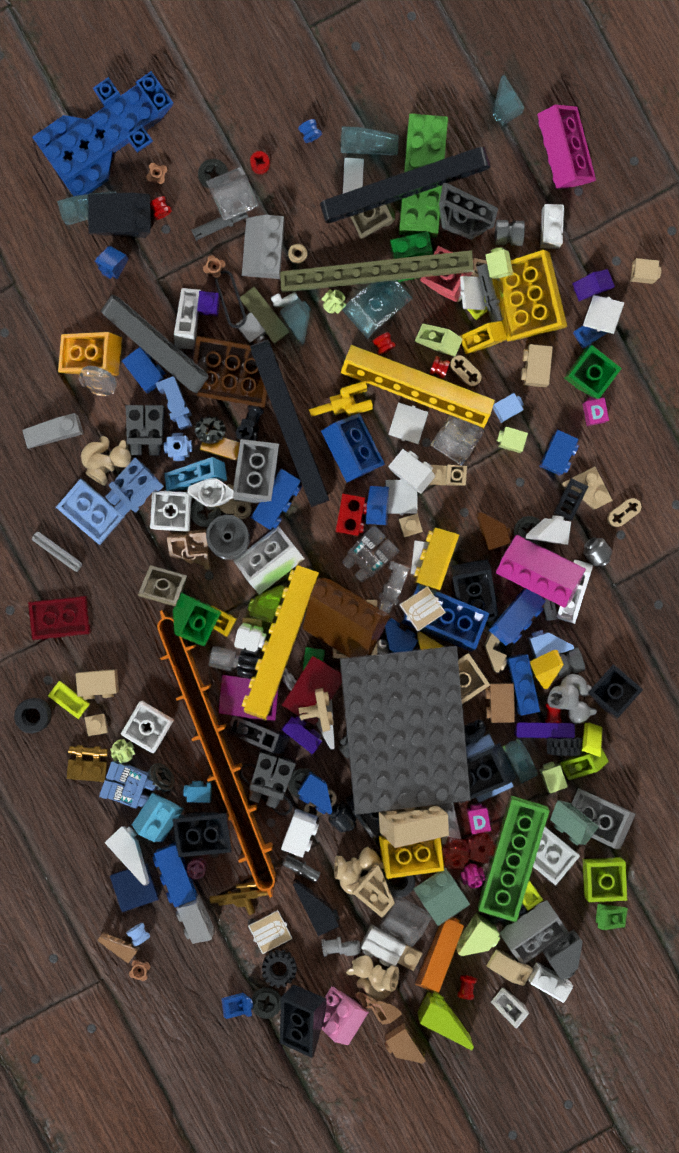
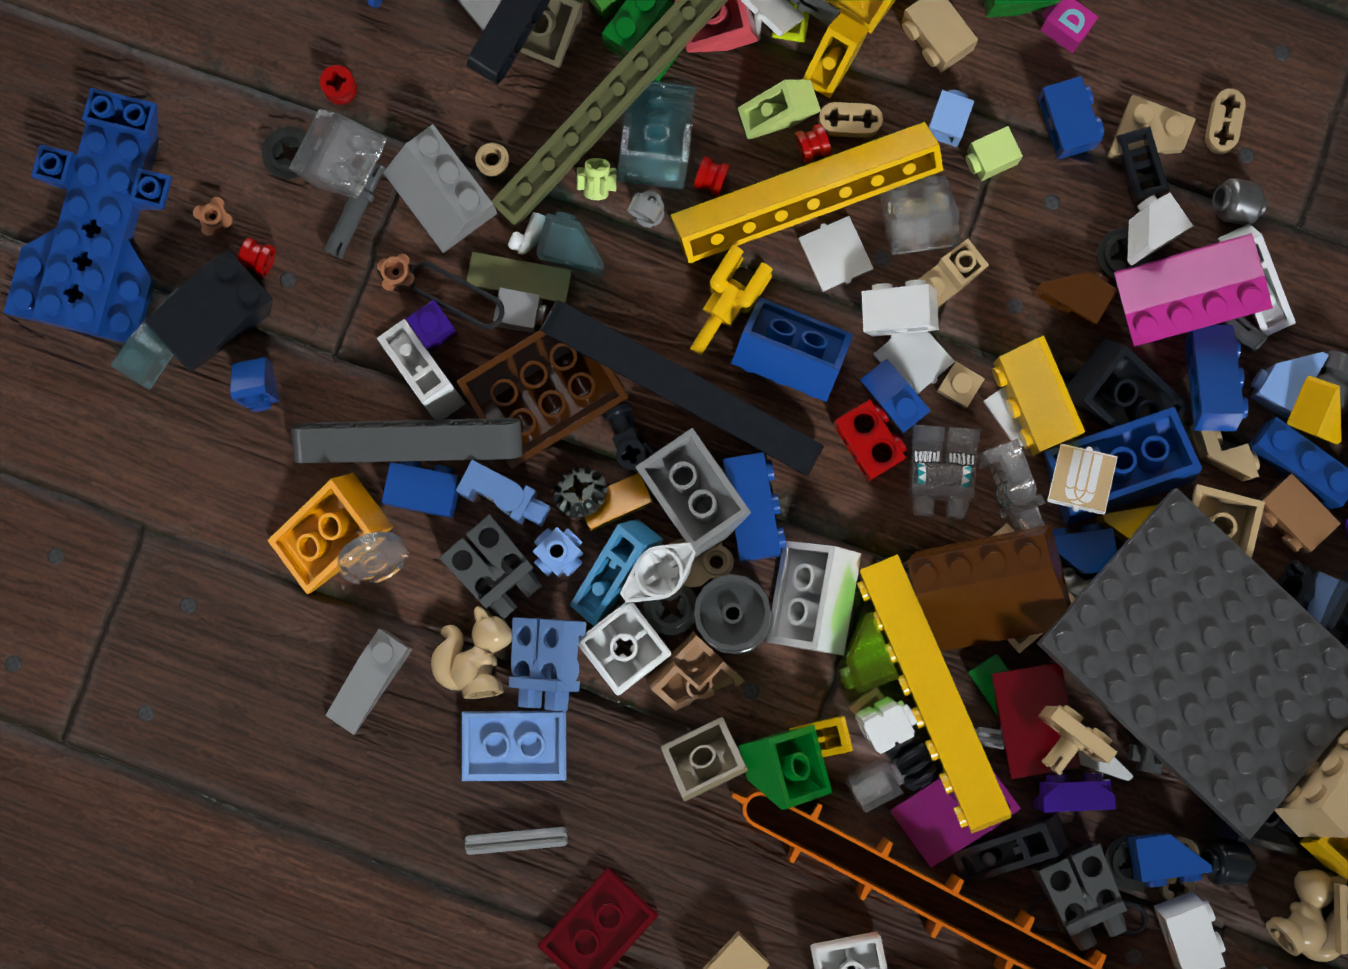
camera: 40 degrees left, 5 degrees down
(341, 333) = (647, 208): none -> light grey connector

